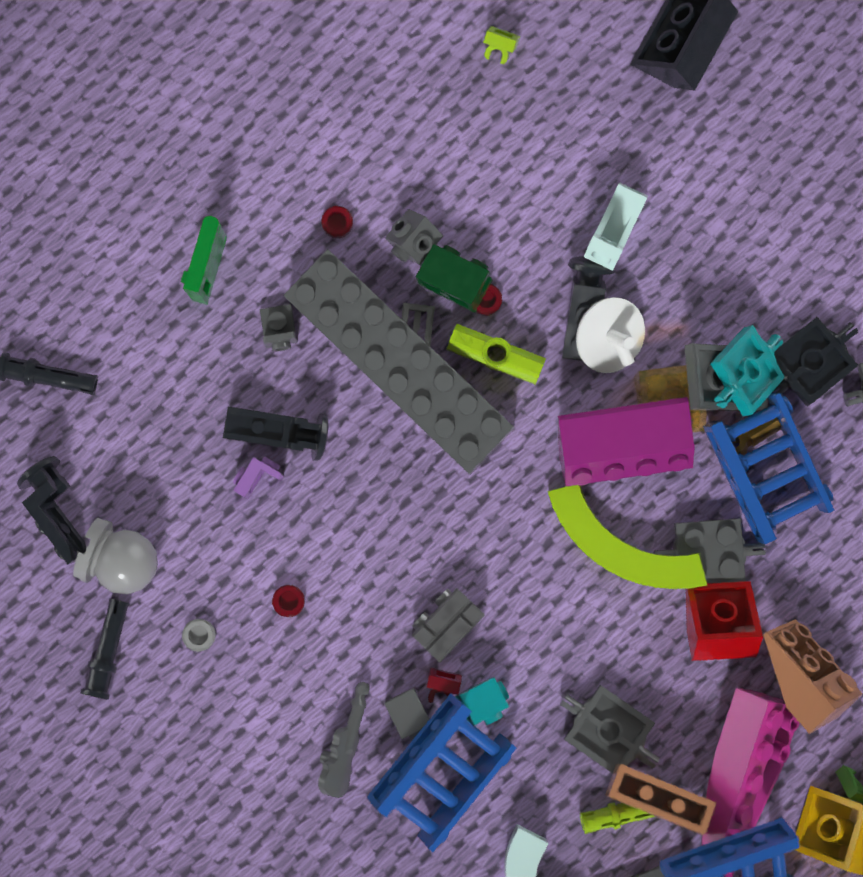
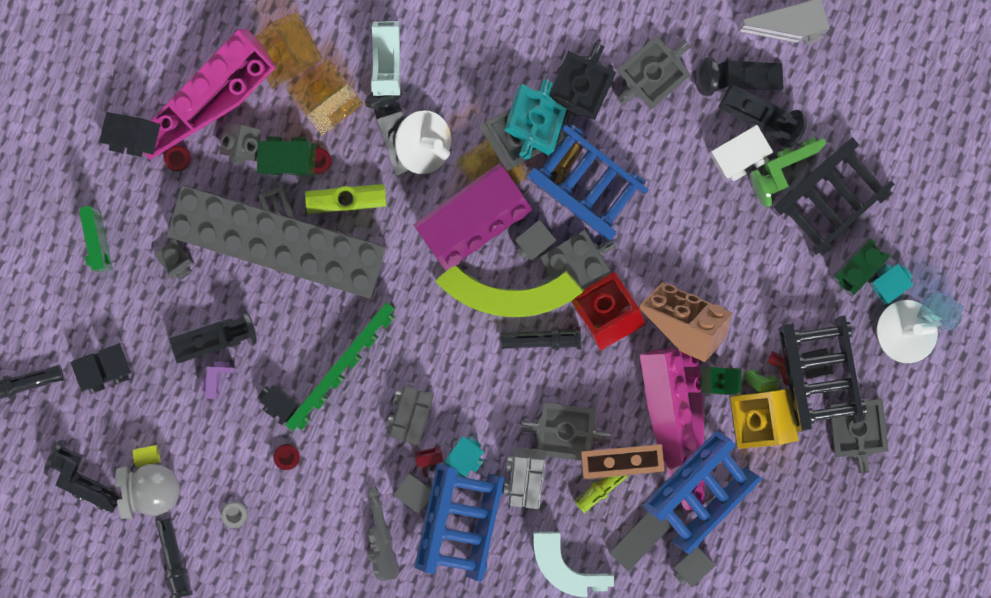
camera: 30 degrees left, 5 degrees up
(137, 521) = (146, 456): none -> neon yellow hinge
(146, 403) = (103, 367): none -> black piece
(300, 168) = (129, 134): none -> black piece
(308, 537) = (277, 403): none -> black brick
(385, 540) = (334, 376): none -> green plate
(407, 168) = (214, 89): none -> dark pink wedge
(510, 164) = (289, 49): none -> clear yellow slope
(529, 235) = (325, 97): none -> clear yellow slope
(540, 760) = (526, 477): none -> flat silver brick
(648, 621) = (555, 338): none -> black pin
(678, 503) = (534, 241): none -> dark grey brick
(811, 763) = (720, 381): none -> dark green bracket

